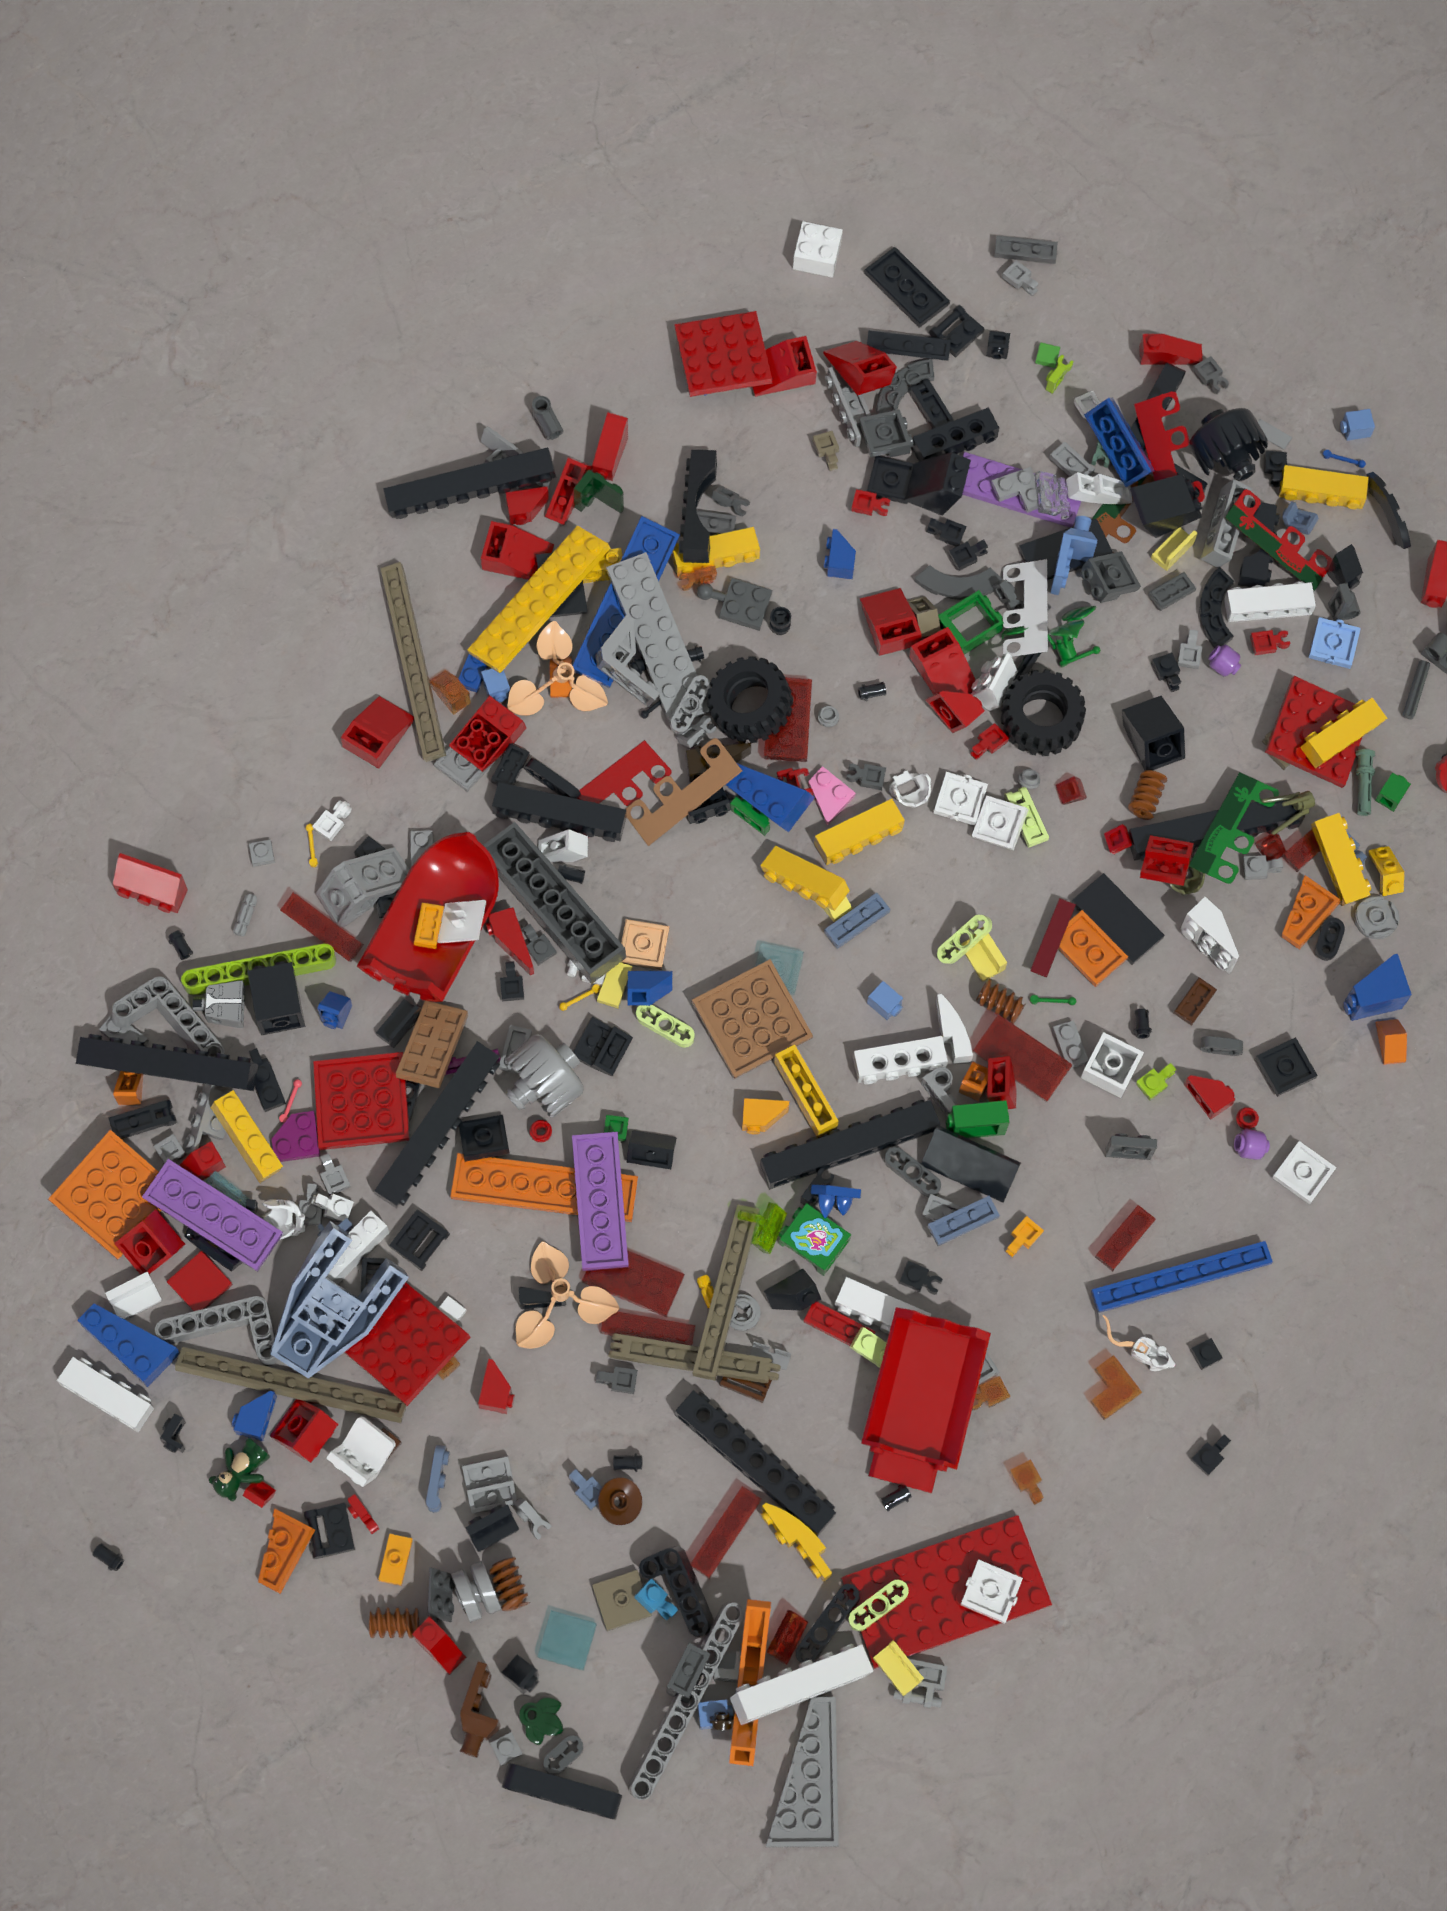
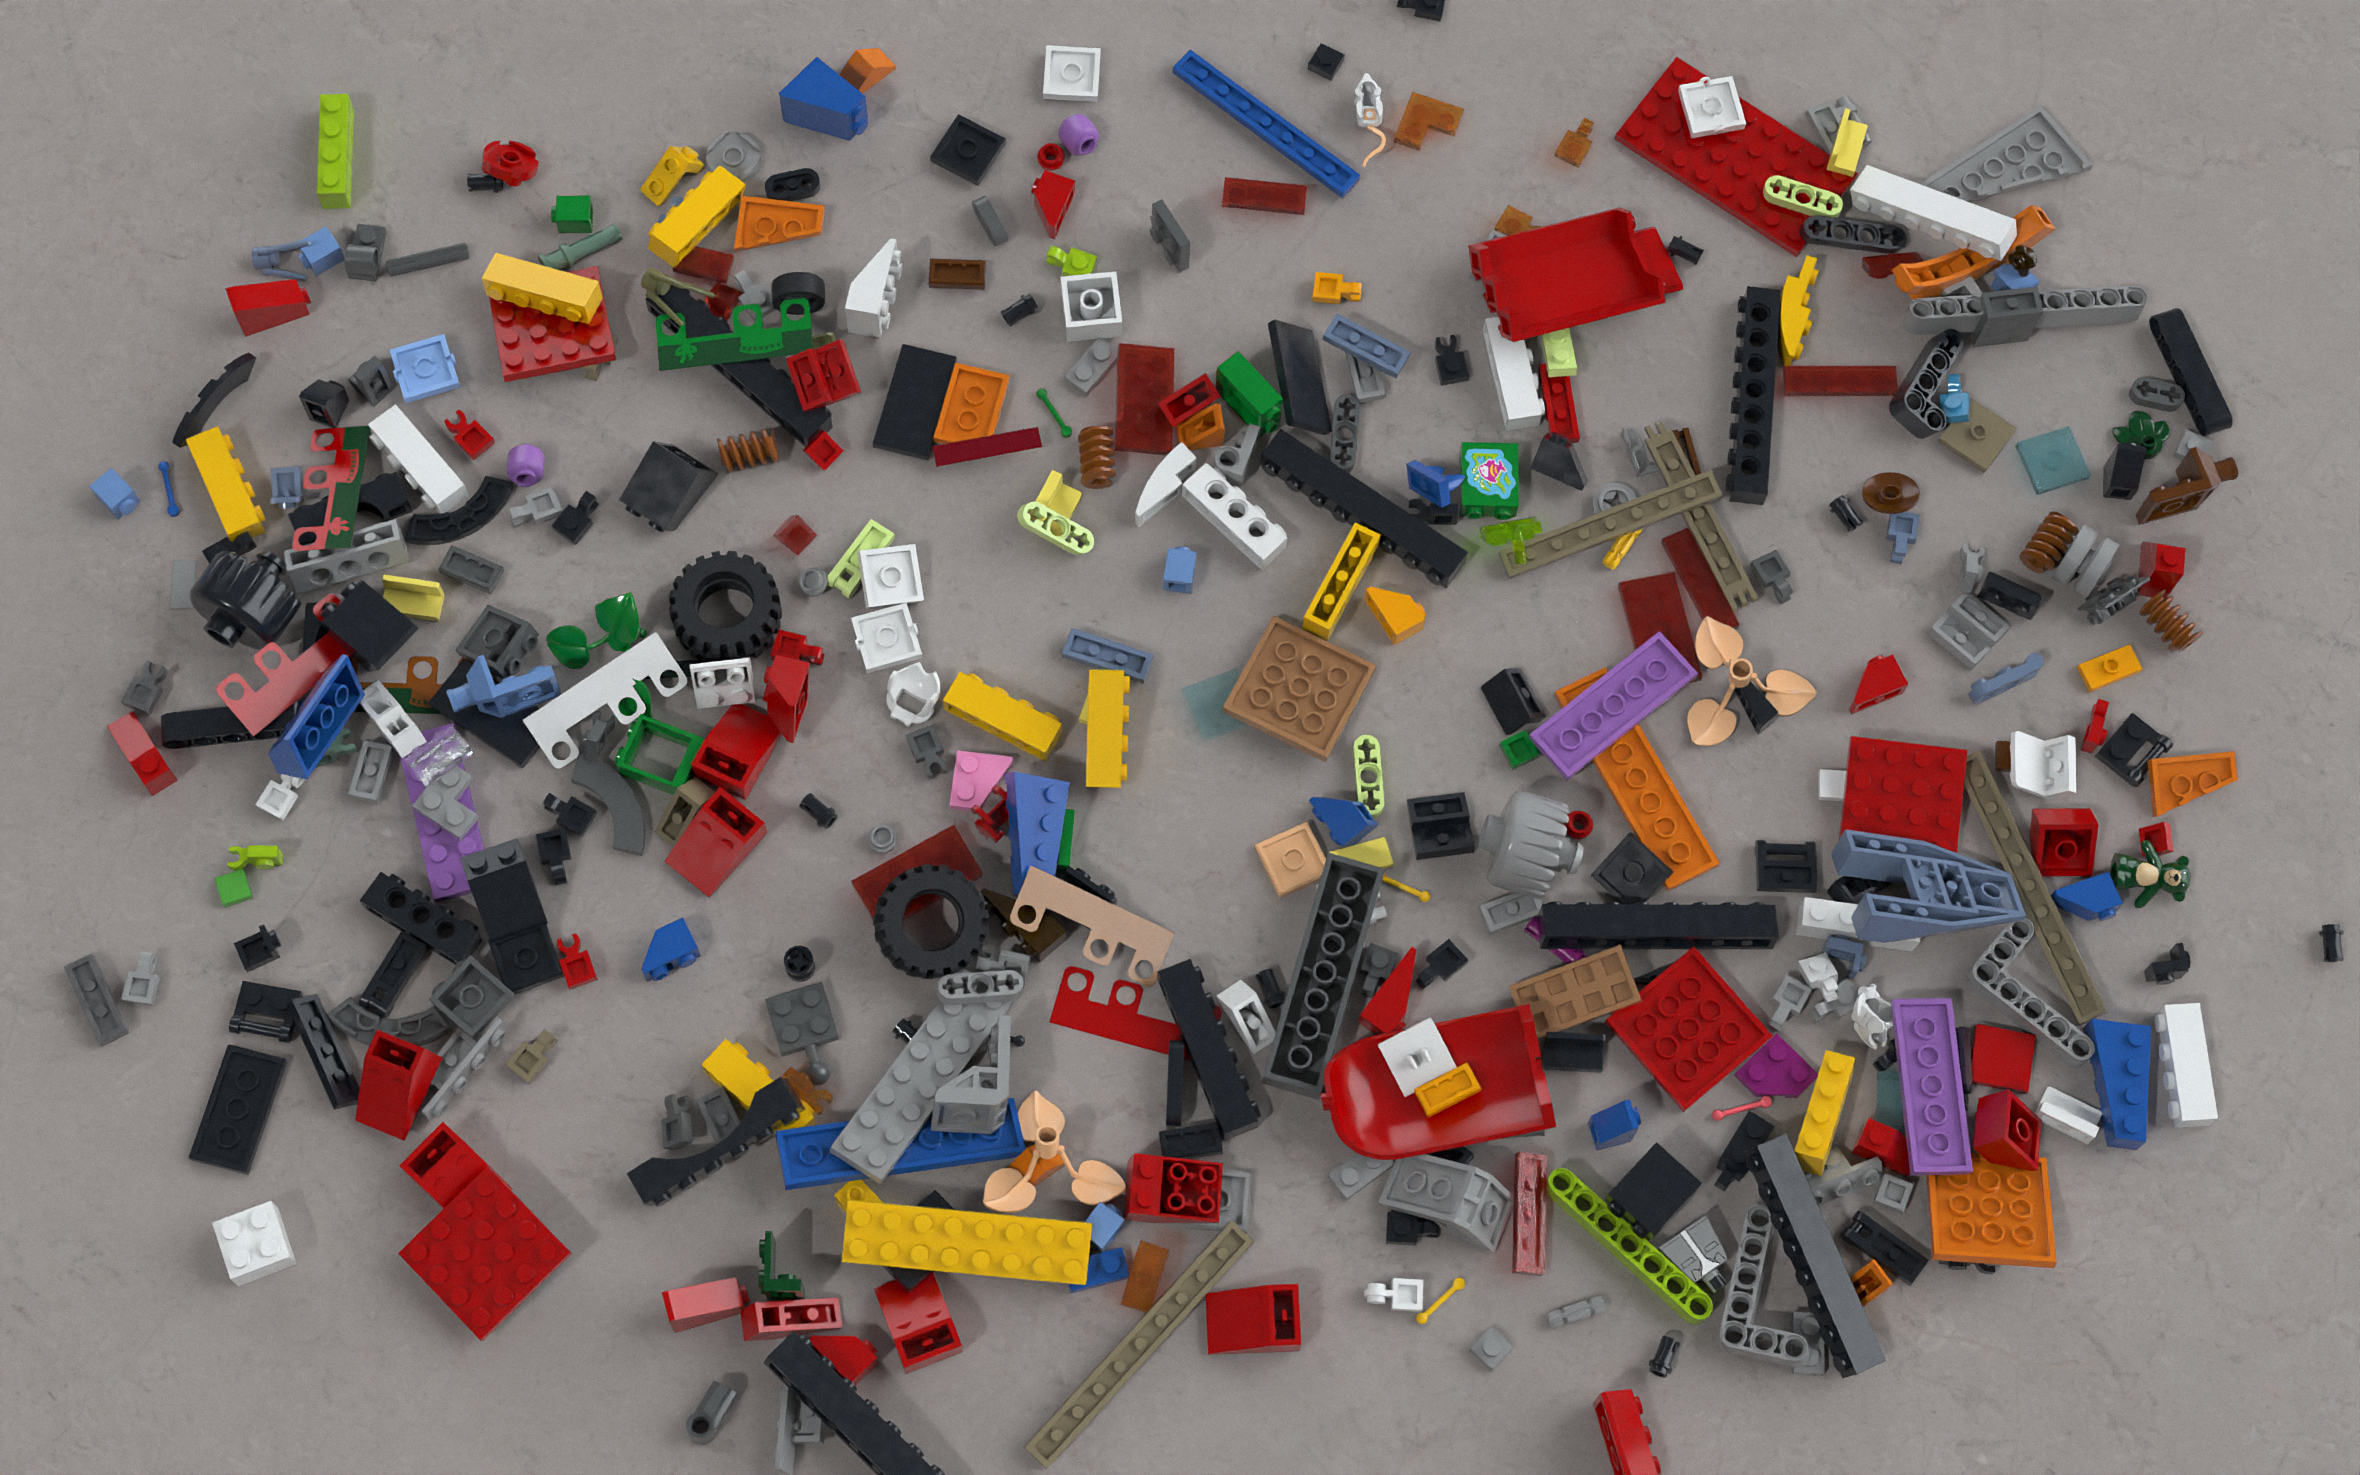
camera: 125 degrees left, 0 degrees up
(1241, 888) = (798, 285): none -> black tyre

